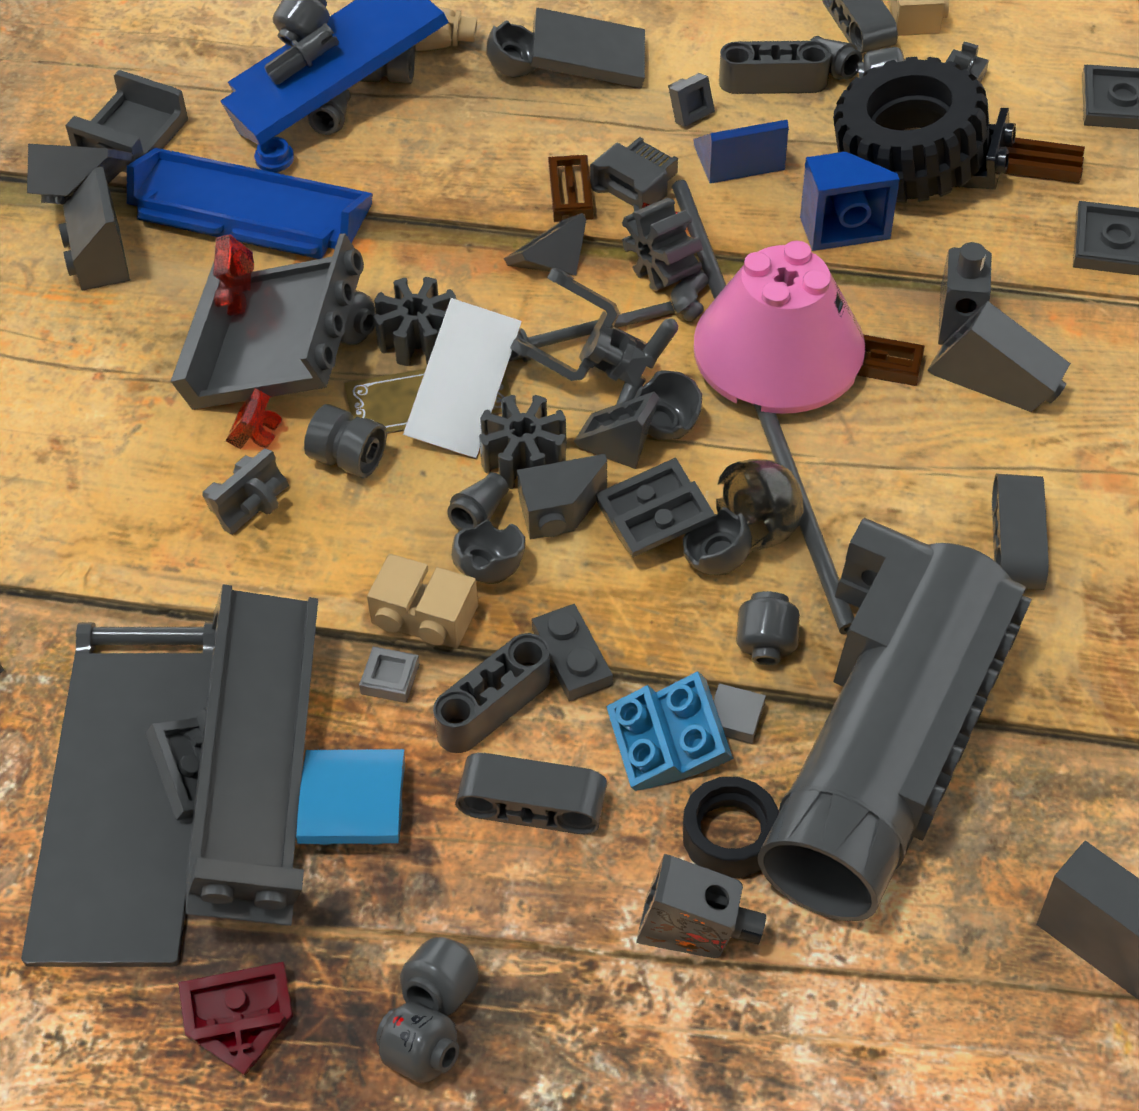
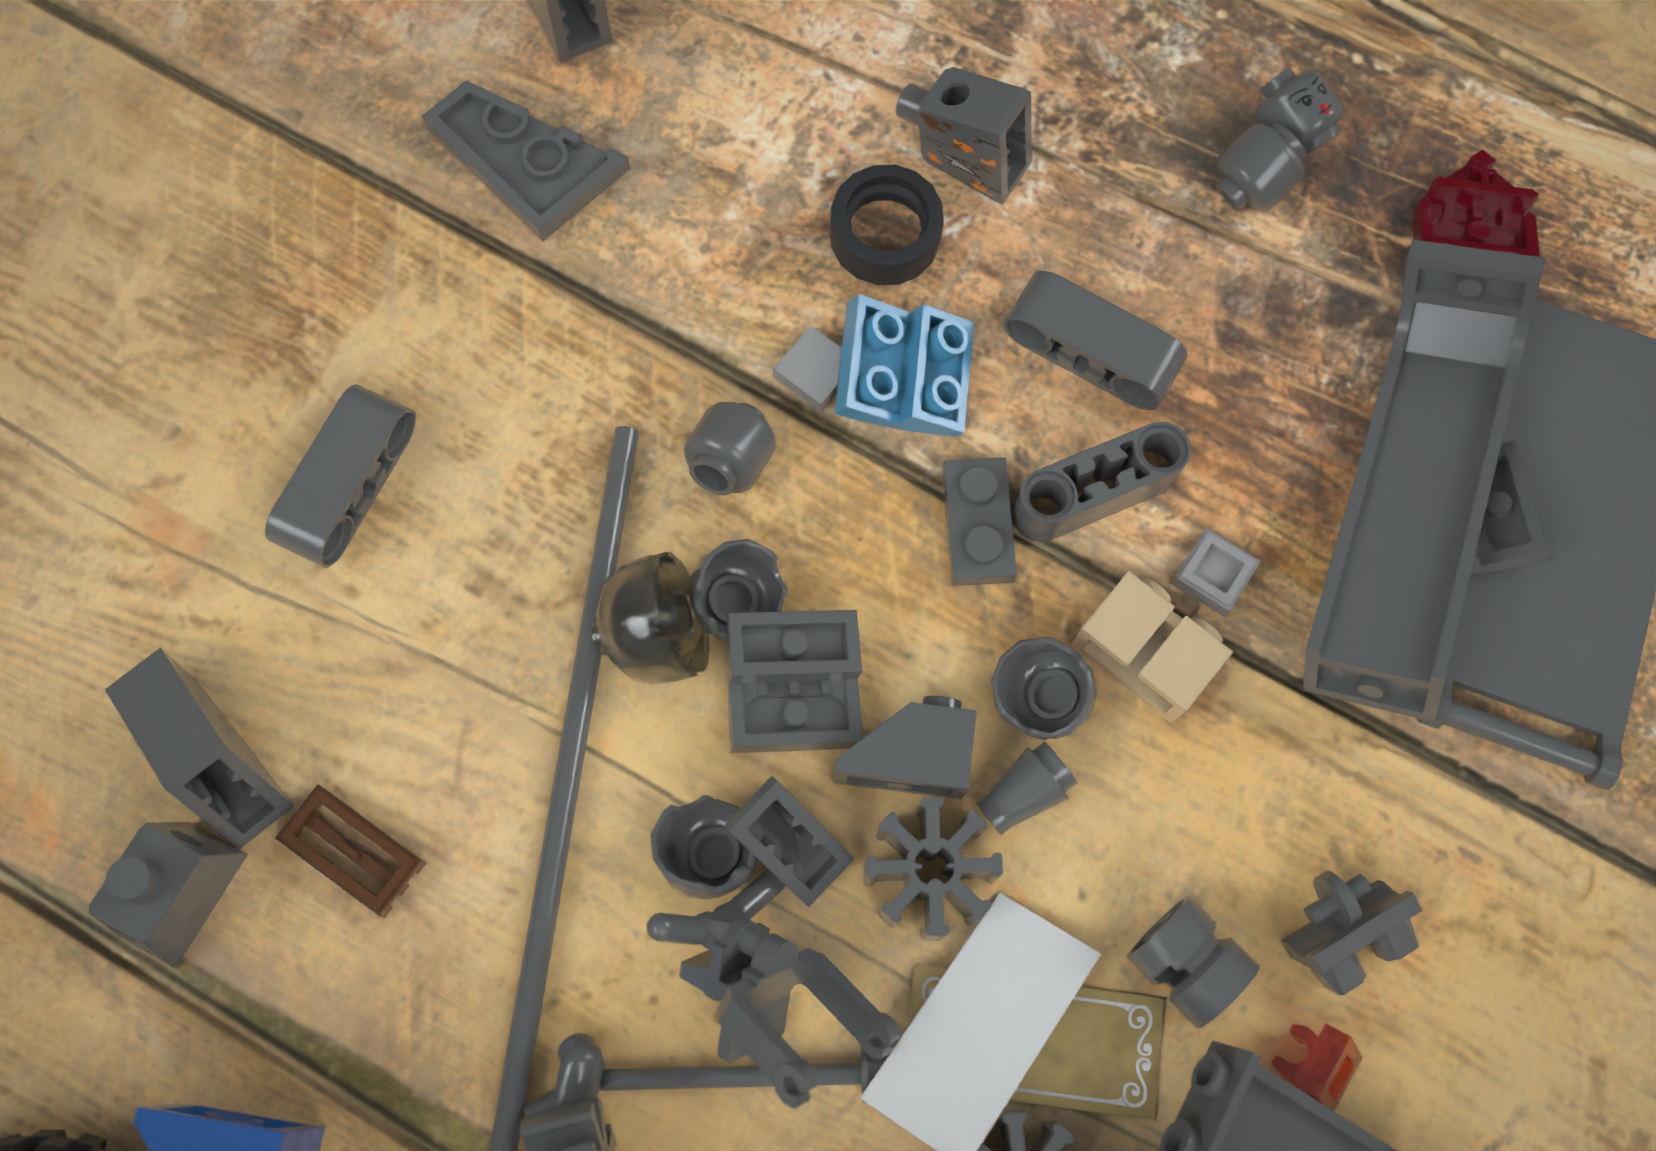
camera: 165 degrees left, 20 degrees up
(351, 797) = (1306, 409): dark azure slope -> none
(780, 333) = (519, 956): bright pink cone -> none
(912, 691) = (580, 290): dark grey piece -> none
(1041, 784) = (525, 163): none -> dark grey wing

